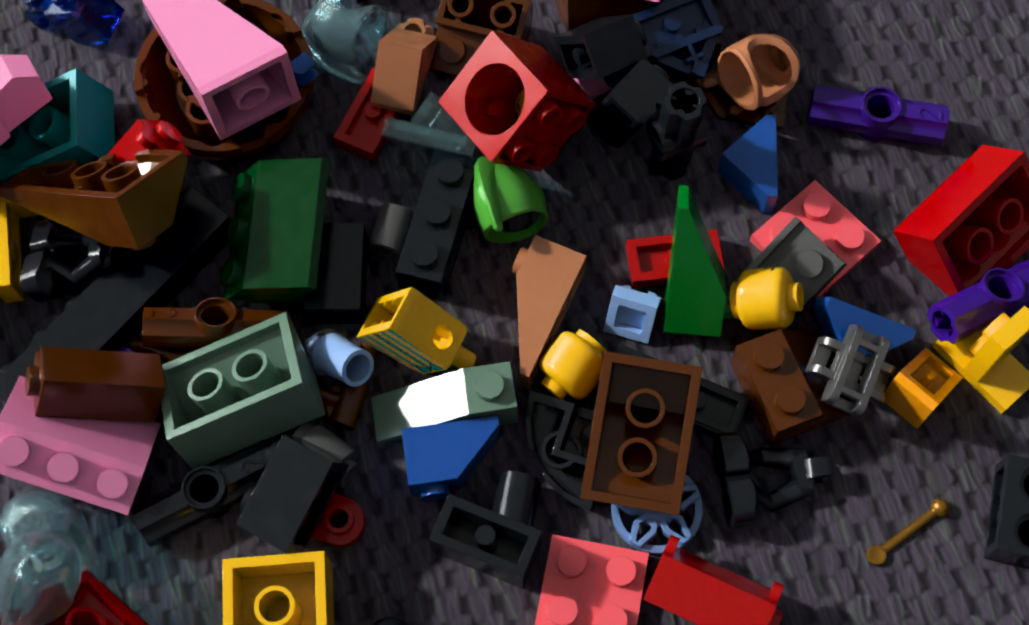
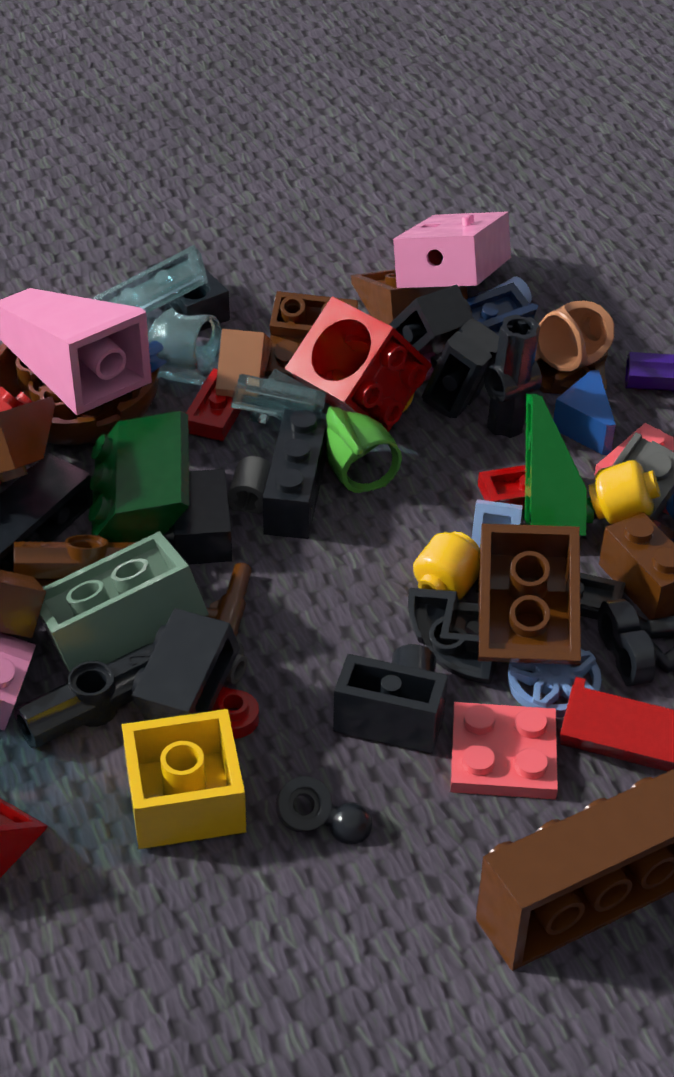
camera: 10 degrees left, 25 degrees down
(338, 357) = (219, 573): light blue piece -> none
(416, 333) = (291, 546): yellow torso -> none
(446, 454) = (324, 639): blue slope -> none
(447, 398) = (335, 604): sand green slope -> none
(545, 287) = (407, 518): nougat slope -> none

